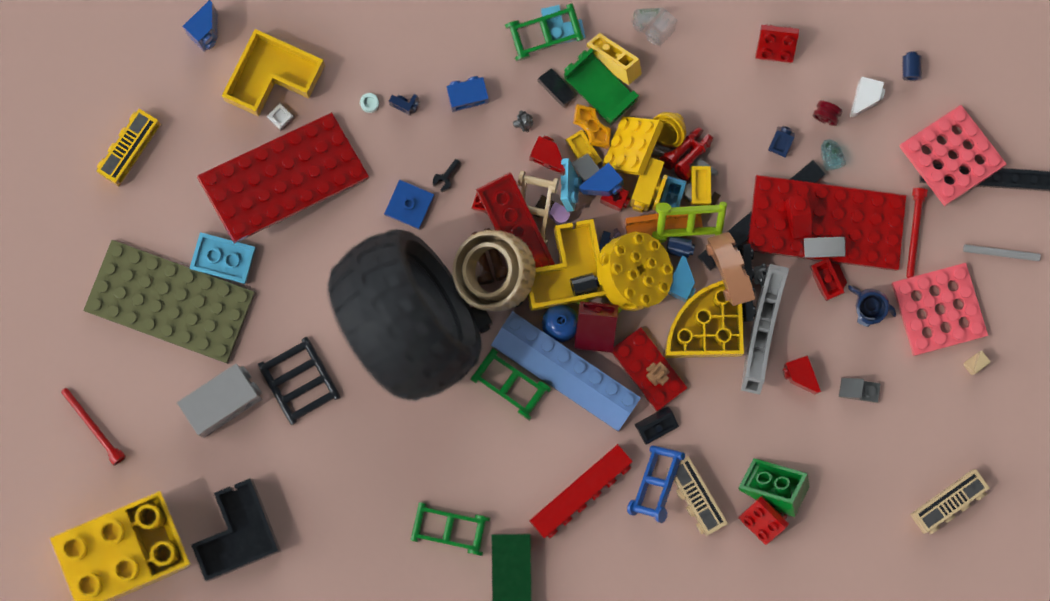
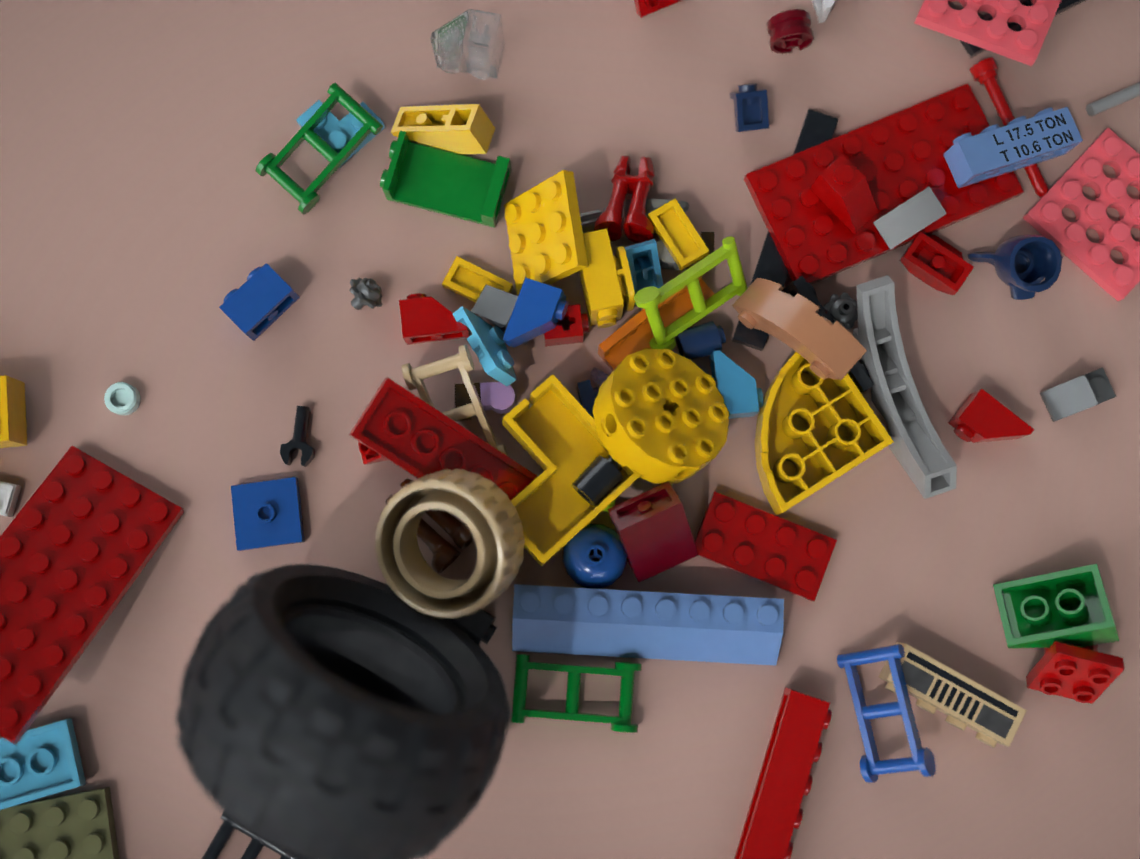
camera: 30 degrees left, 0 degrees up
(402, 105) = (168, 372): dark blue bracket -> none
(557, 88) = (385, 218): black slope -> none
(597, 133) = (482, 248): light orange tile -> none
(656, 425) = (825, 621): black slope -> none
(657, 373) = (786, 548): medium nougat gear -> none
(673, 130) = (591, 178): yellow piece -> none
(832, 155) = (831, 88): clear light blue rock -> none
(903, 242) = (1012, 146): none -> medium blue brick

